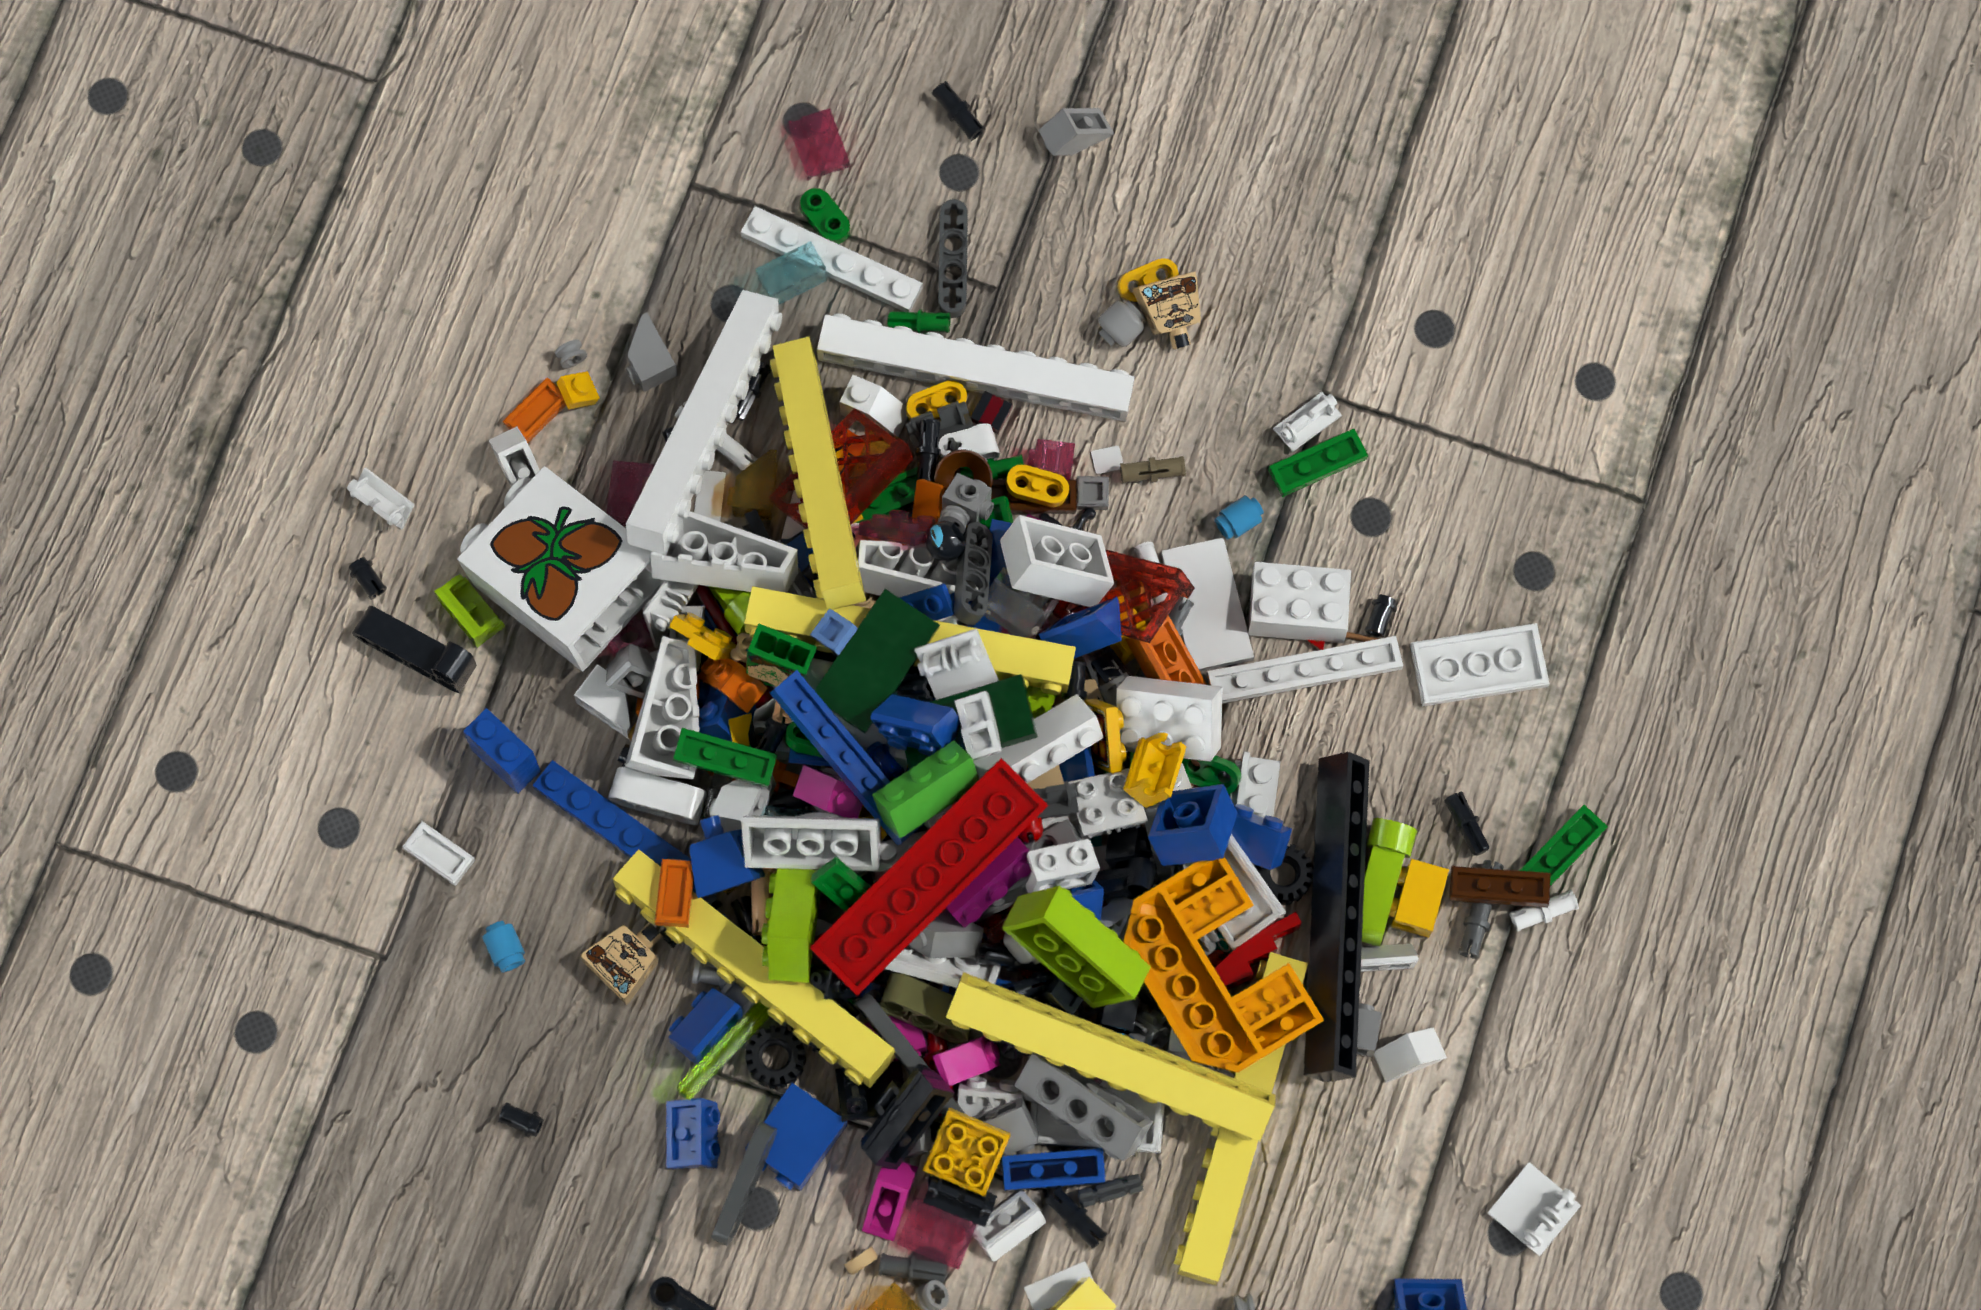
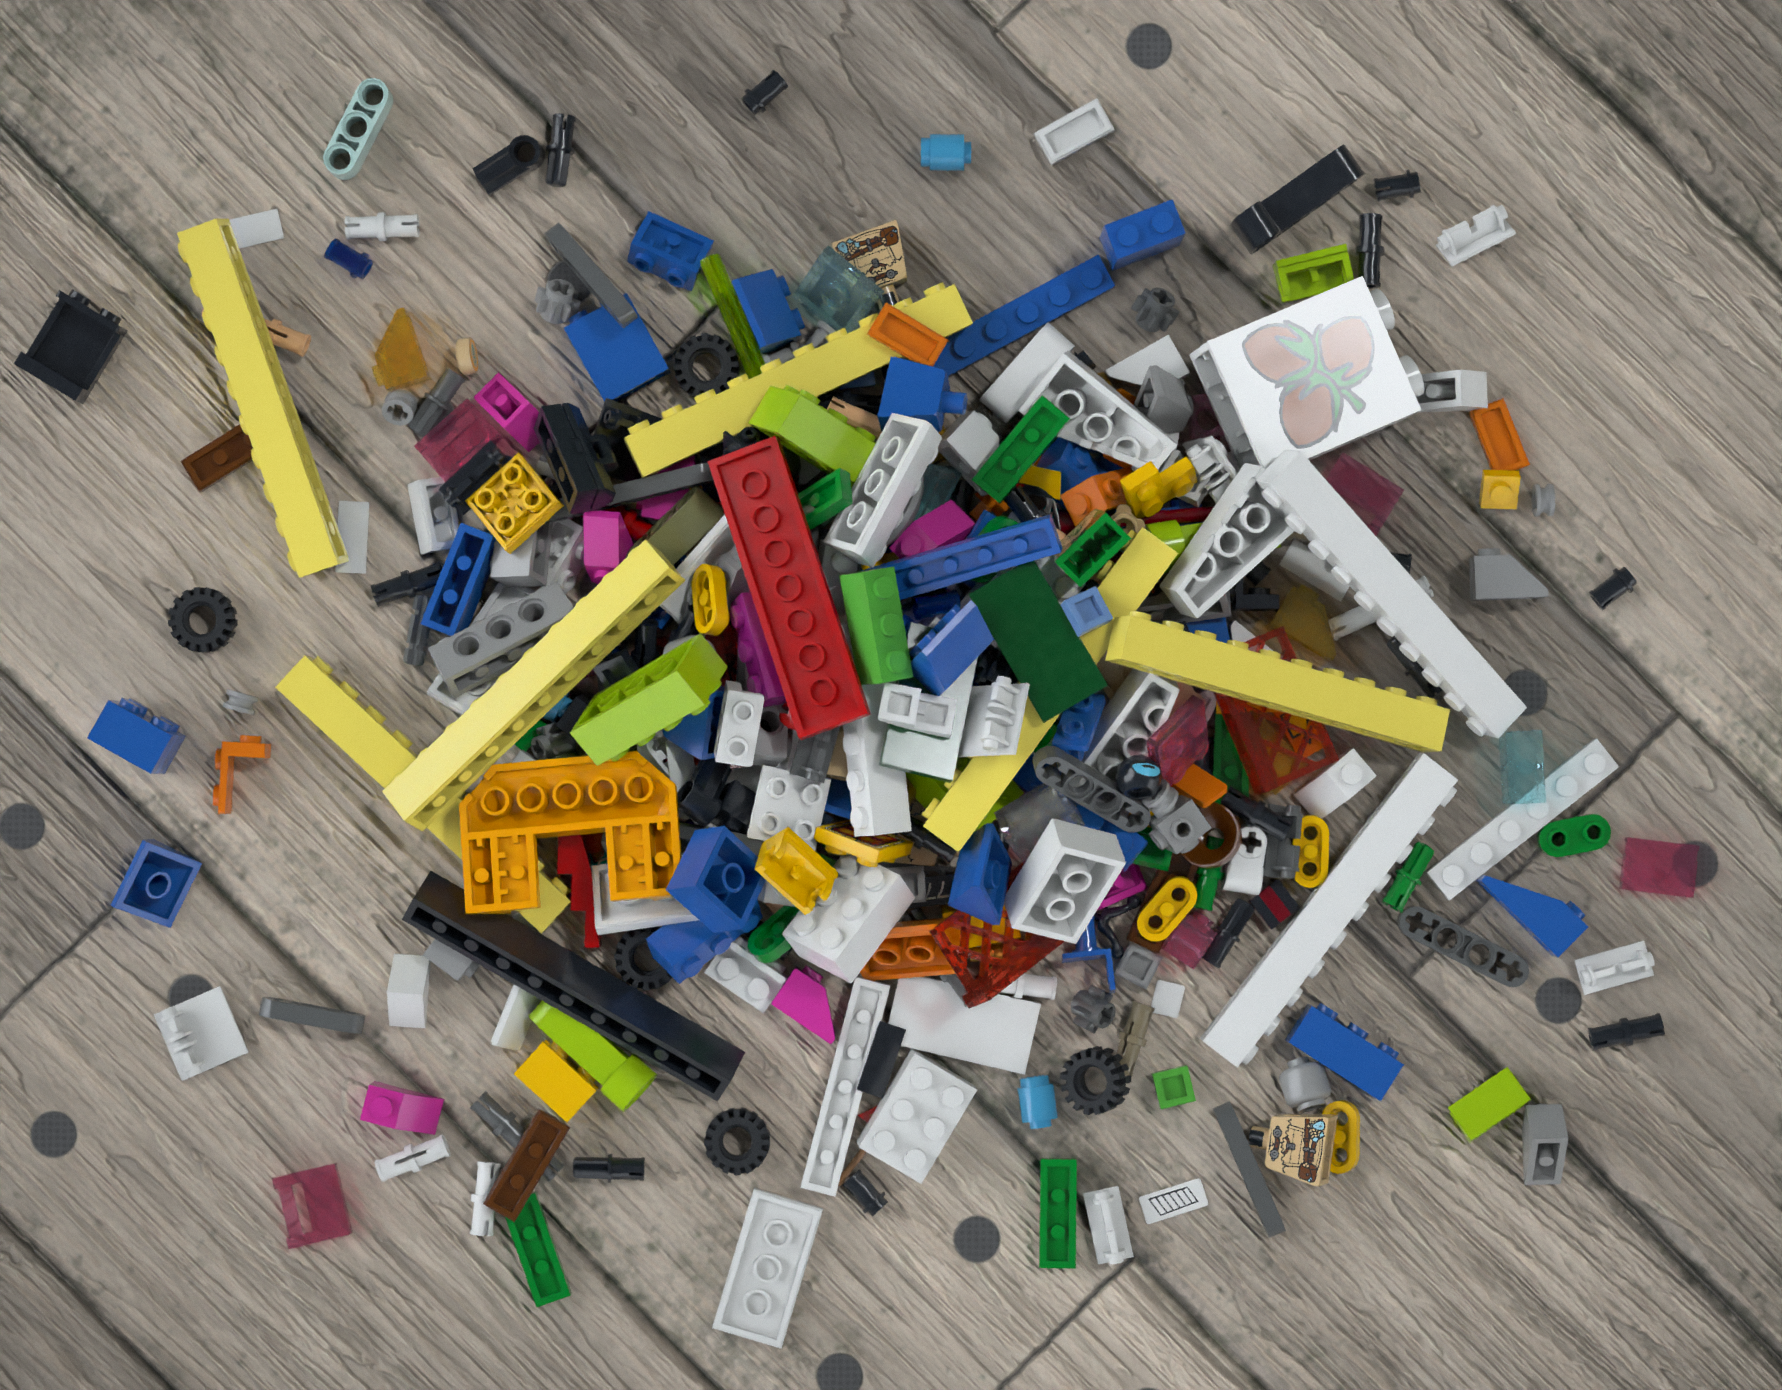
camera: 120 degrees right, 15 degrees up
(430, 575) = (1370, 249): none -> black pin
(557, 717) = (1155, 309): none -> dark grey gear
(615, 272) = (1613, 588): none -> black pin
(649, 1267) = (560, 150): none -> black axle
(663, 975) = (837, 292): none -> clear light blue tile
(779, 1205) = (557, 301): none -> light grey gear
(901, 204) = (1543, 917): none -> blue slope
(912, 141) = (1614, 967): none -> white hinge
(969, 943) = (710, 600): none -> yellow plate
(1029, 434) = (1228, 932): none -> black axle
(1067, 182) = (1488, 1104): none -> lime hinge
(1079, 306) = (1345, 1050): none -> blue brick
(1102, 513) = (1087, 950): none -> blue bracket
(1144, 507) = (1093, 1009): none -> dark grey gear
(1174, 421) = (1173, 1086): none -> bright green plate
(1208, 335) = (1249, 1169): none -> dark grey beam
(1217, 485) = (1076, 1085): none -> black tyre
(1253, 729) = (807, 1002): none -> dark pink slope
(1262, 383) = (1173, 1201): none -> white sticker
(1269, 651) = (881, 1059): none -> black sticker
(1280, 1285) = (224, 761): none -> orange bracket
(1386, 751) = (737, 1163): none -> black tyre
(1471, 1122) = (312, 1015): none -> dark grey beam
(1508, 1013) = (401, 1108): none -> dark pink slope
(1559, 1001) = (434, 1149): none -> white pin
(1616, 1040) = (324, 1203): none -> clear pink plate

